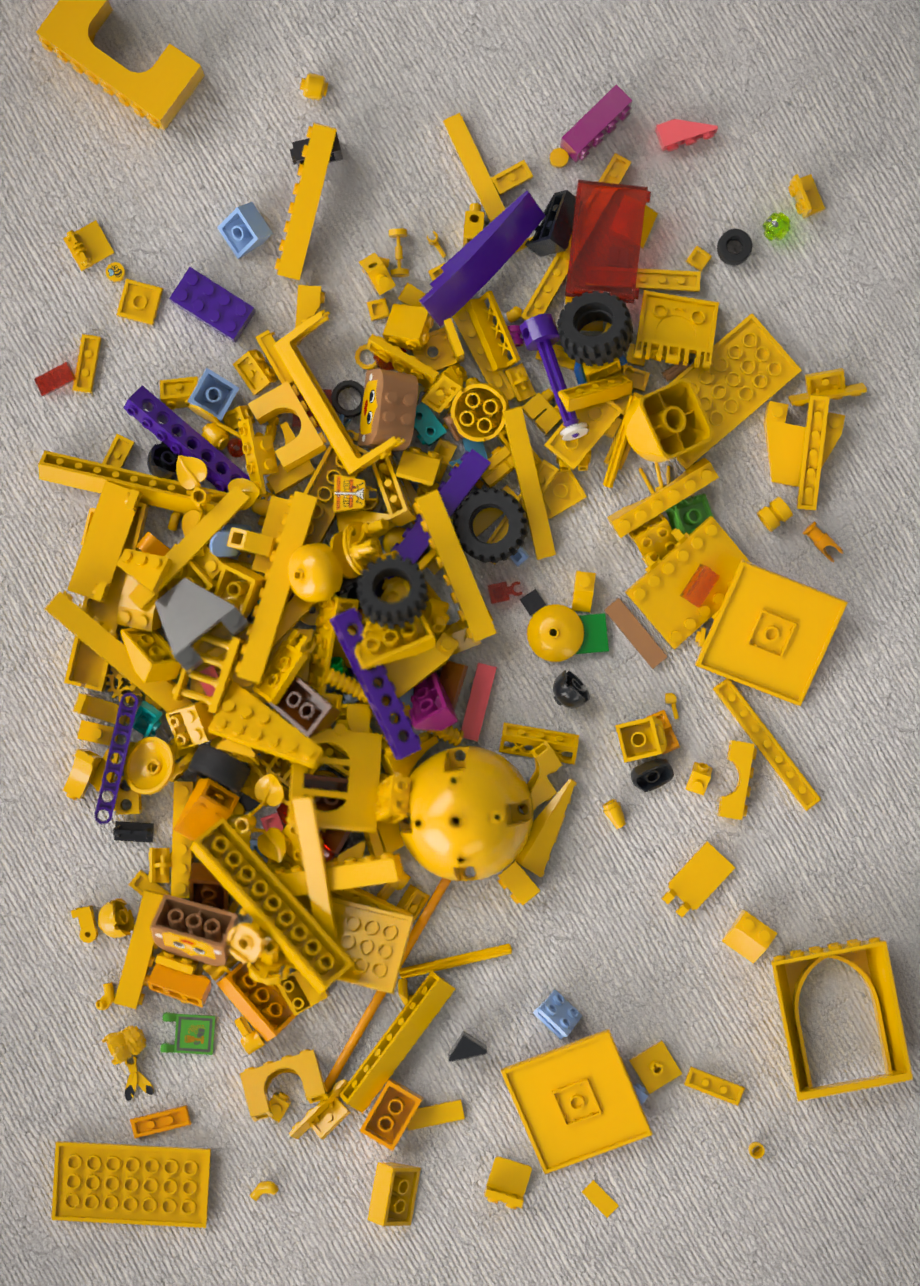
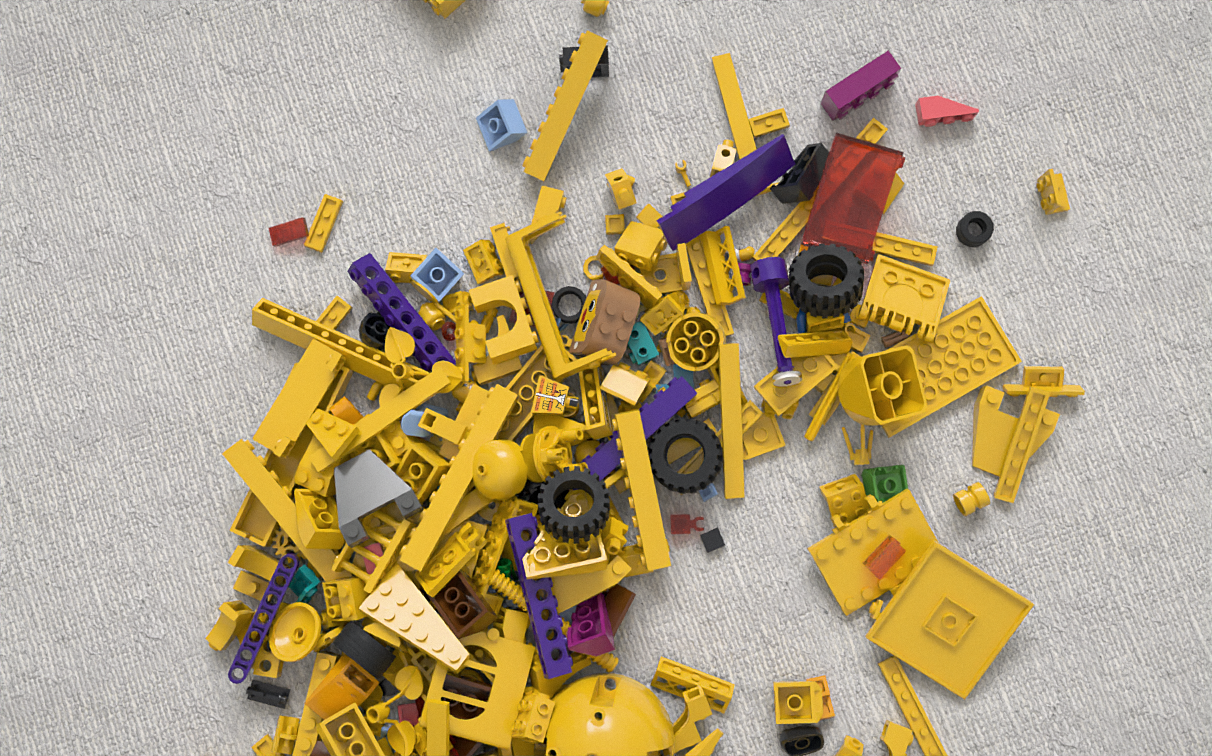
camera: 15 degrees right, 5 degrees down
(88, 245) = (348, 111): yellow hinge -> none
(115, 272) = (369, 141): yellow tile -> none
(139, 302) = (386, 174): yellow tile -> none
(212, 304) = (455, 189): dark purple brick -> none
(398, 233) = (648, 155): yellow wheel -> none
(478, 701) = (639, 630): coral tile -> none
(520, 382) = (740, 320): yellow hips -> none
(537, 405) = (753, 346): yellow hips -> none
(558, 158) = (817, 113): yellow tile -> none
(568, 637) = (743, 571): yellow dish -> none
(569, 691) = (732, 638): black cylinder -> none
(583, 591) = (765, 539): yellow slope -> none
(594, 634) = (761, 583): green tile -> none
(635, 633) = (810, 592): medium nougat tile -> none
(670, 698) = (834, 665): yellow hand -> none
(686, 484) = (888, 452): yellow arch -> none
(698, 258) = (936, 234): yellow tile -> none
(776, 226) = (1020, 217): clear neon green head -> none
(821, 540) = (1013, 533): light orange piece -> none

